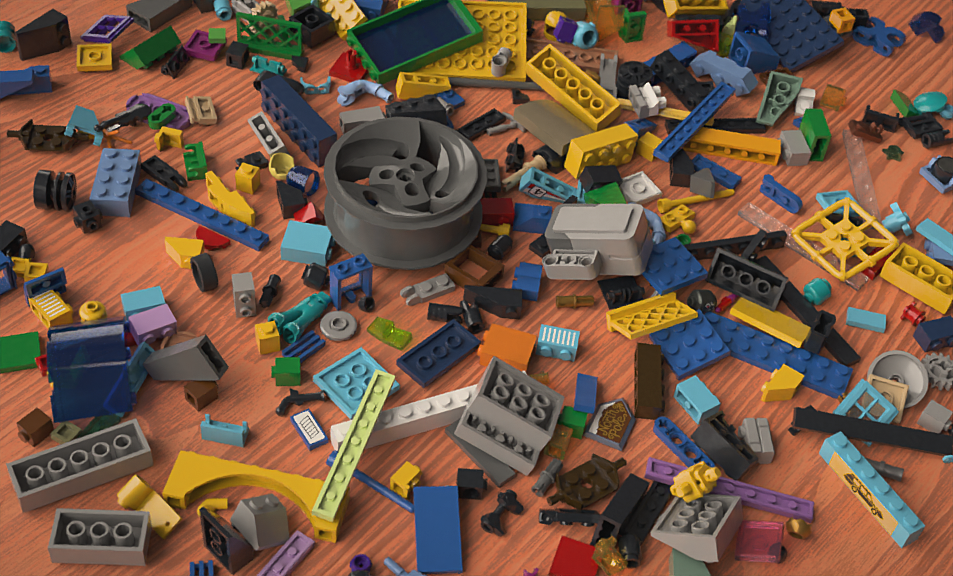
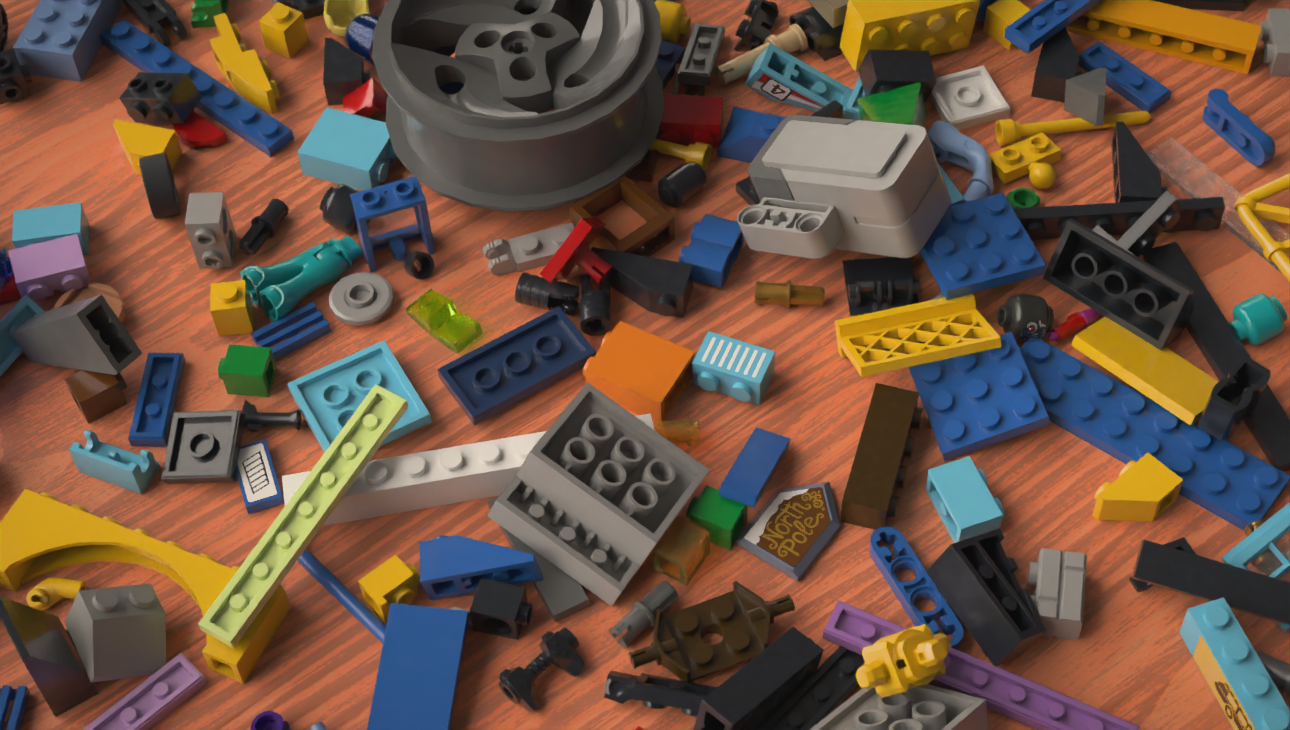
camera: 20 degrees right, 5 degrees up
(187, 222) = (160, 97): none -> black brick
(236, 393) = (157, 399): none -> blue tile
(275, 416) = (203, 447): none -> tile
(444, 462) = (457, 563): none -> blue slope
(459, 288) = (576, 252): none -> red tile
(734, 220) = (1133, 171): none -> black slope

